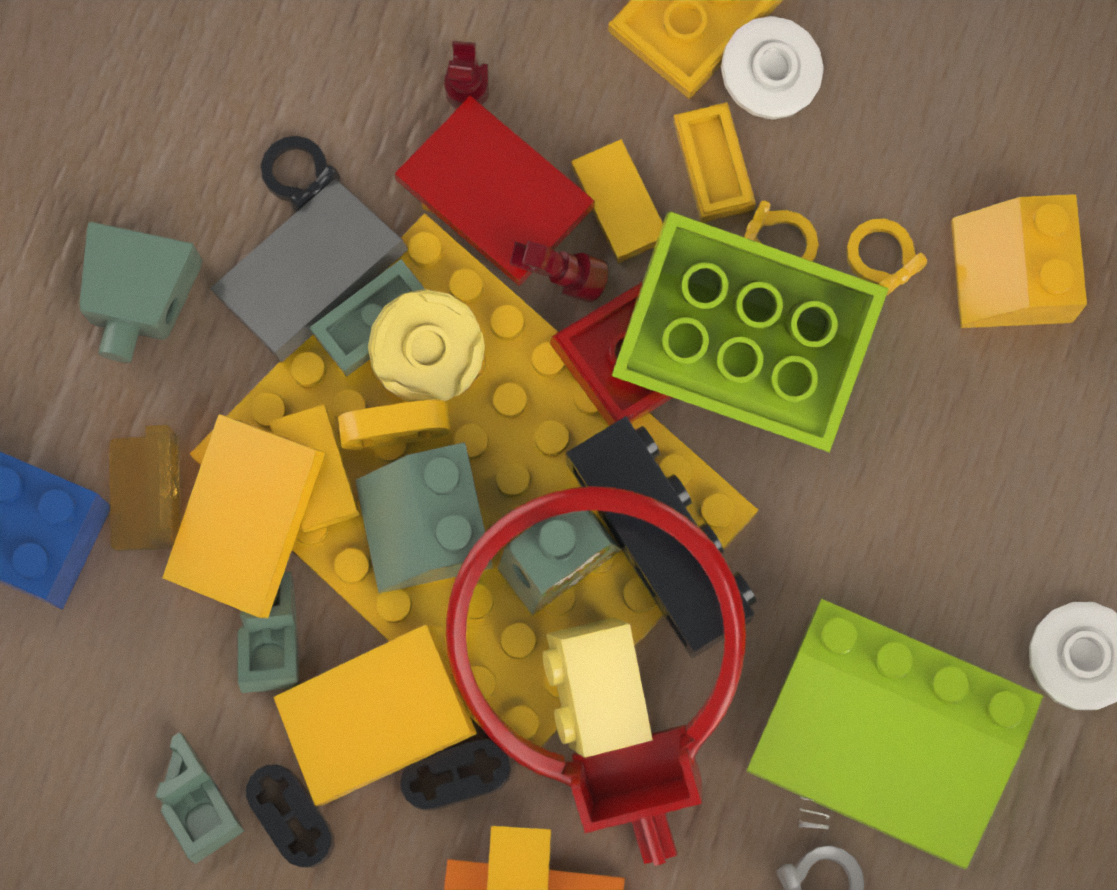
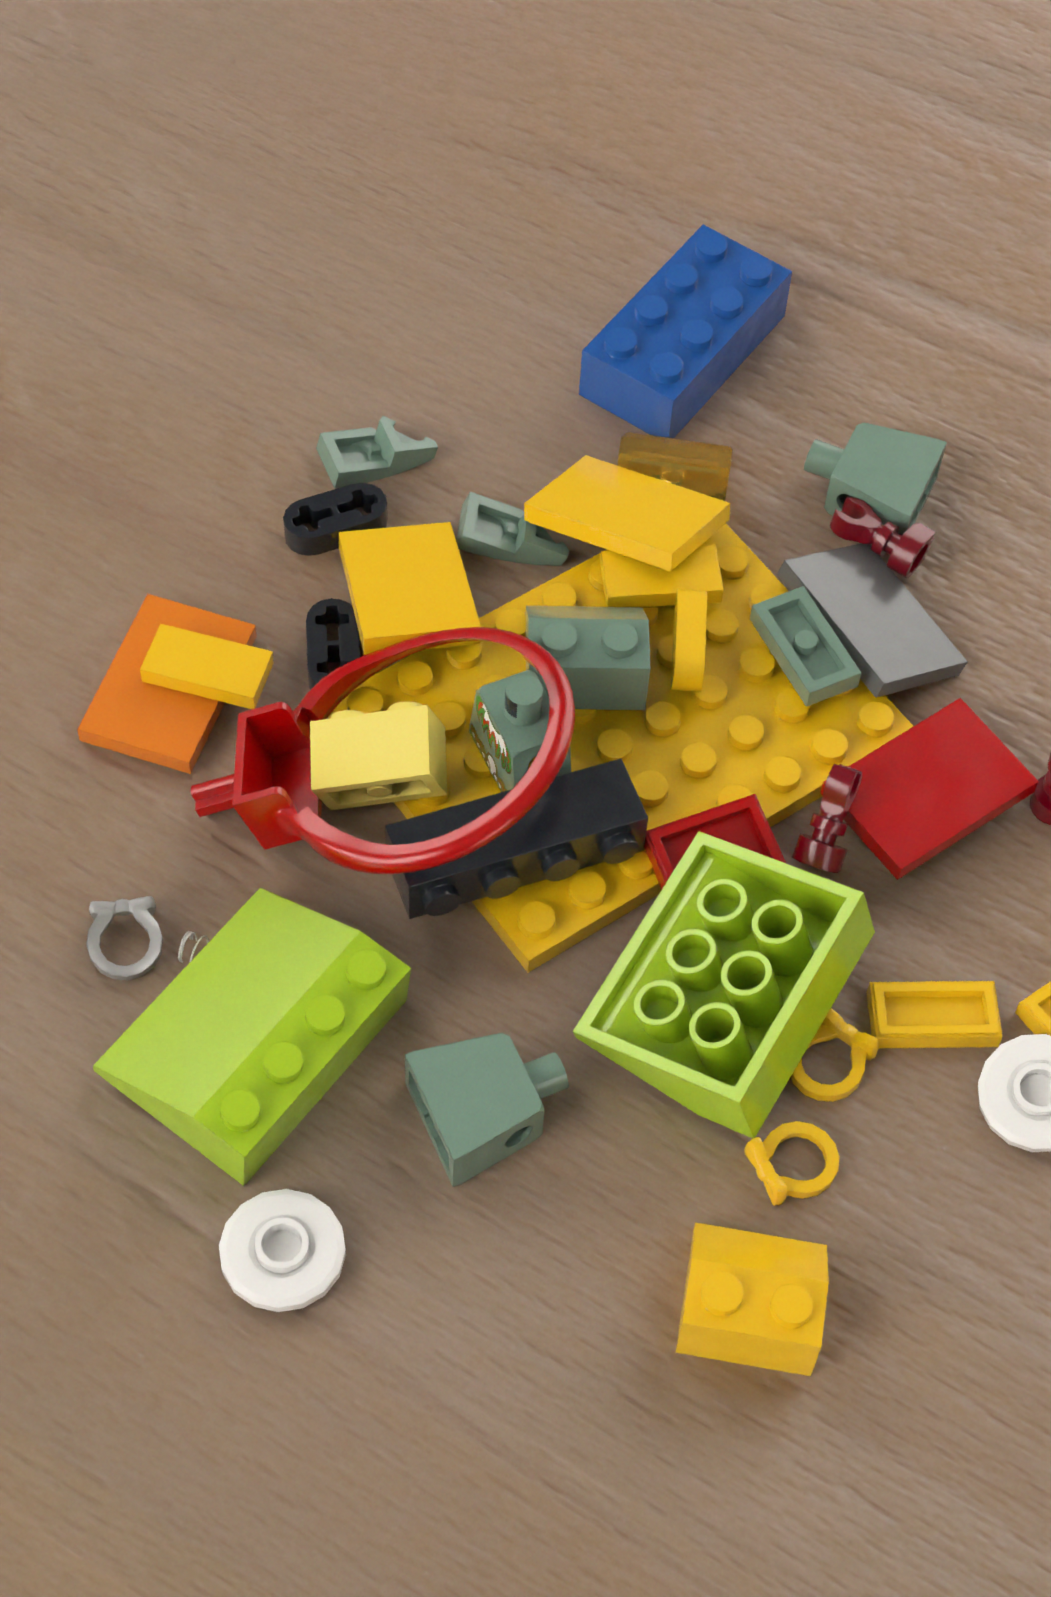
camera: 95 degrees right, 20 degrees down
(223, 247) = (860, 524): none -> dark red piece
(297, 196) = (979, 658): black piece -> none
(426, 346) = (763, 678): light yellow tile -> none
(620, 200) = (916, 910): yellow tile -> none
(909, 517) = (480, 1100): none -> sand green torso

